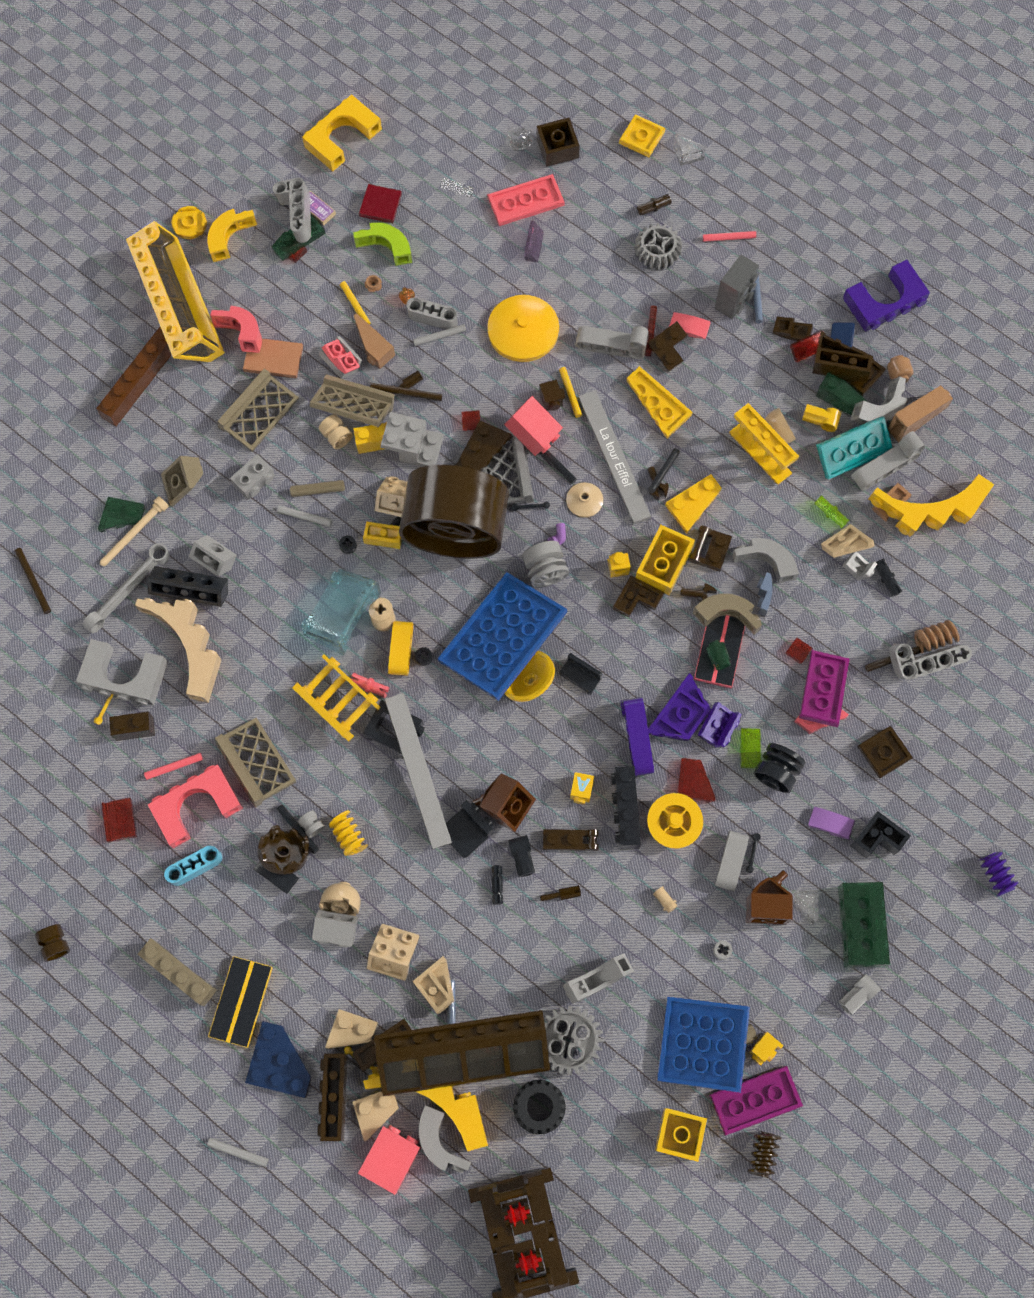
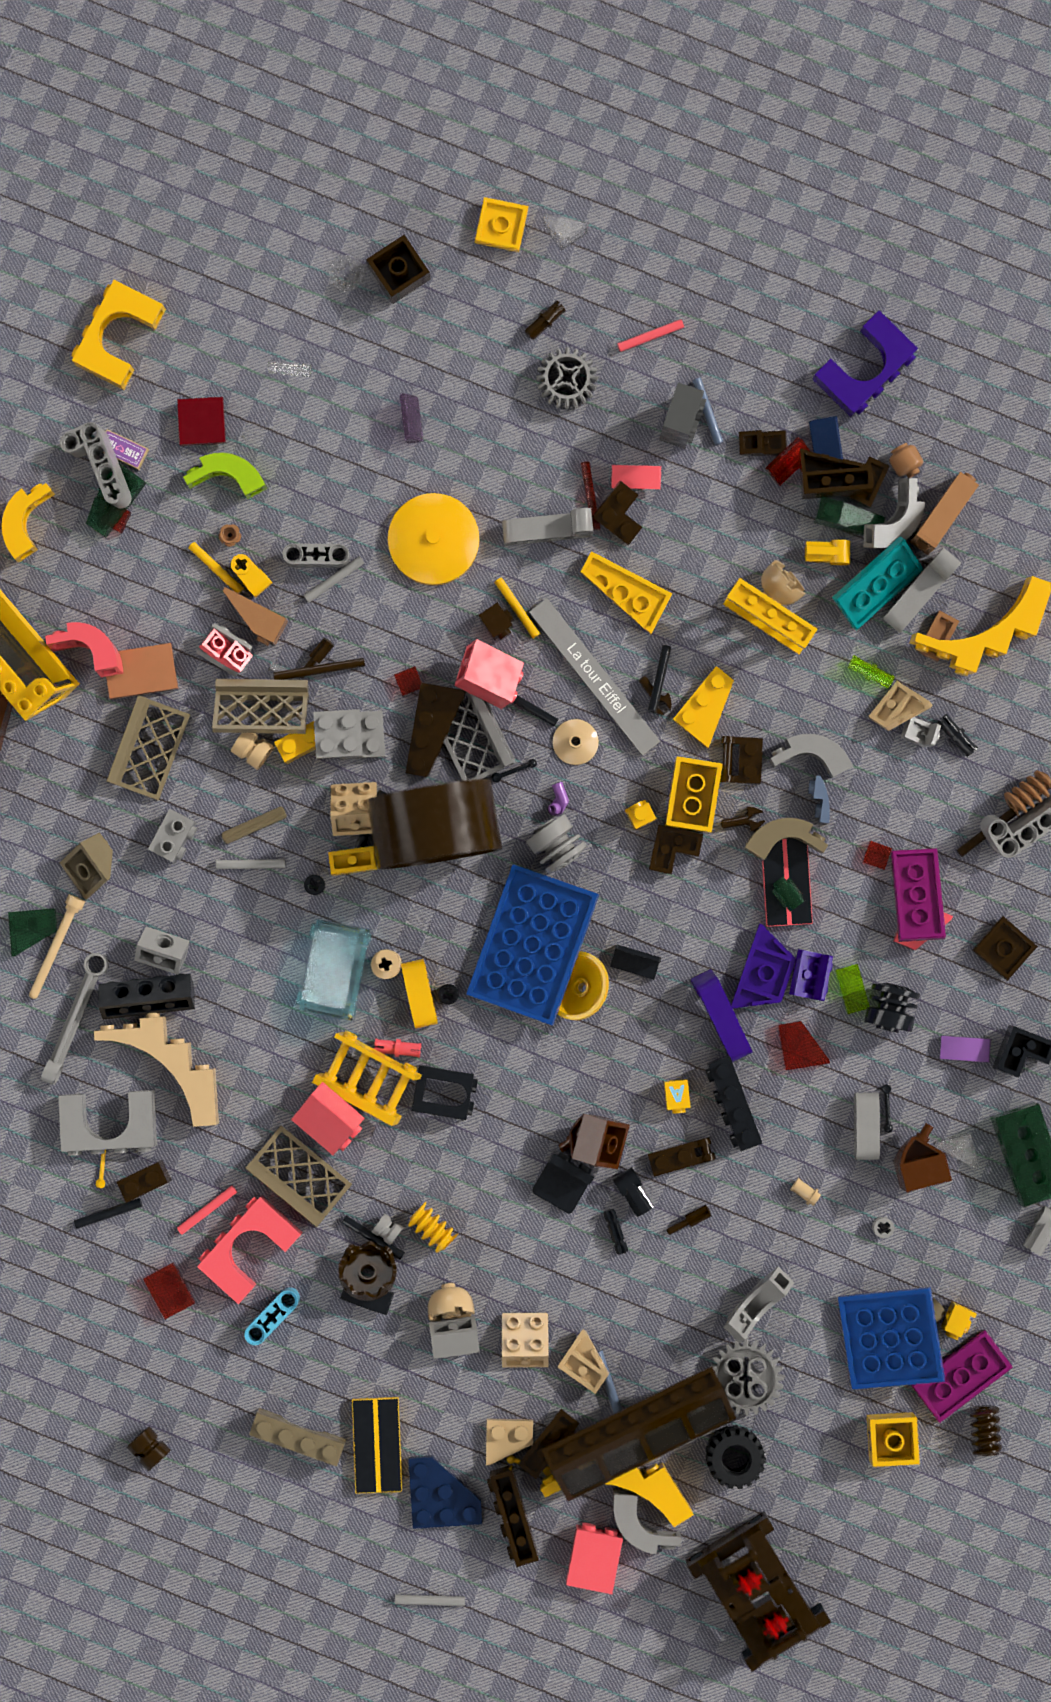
camera: 20 degrees left, 15 degrees up
(94, 745) = (108, 1213): none -> black bar
(294, 719) = (328, 1119): none -> coral brick
(374, 1112) = (560, 1516): tan wing -> none
(379, 314) = (253, 577): none -> yellow piece
(406, 294) = (277, 539): clear orange plate -> none
(418, 771) = (488, 1135): light grey tile -> none
(526, 200) = (381, 359): coral tile -> none
(675, 820) = (792, 1102): yellow wheel -> none

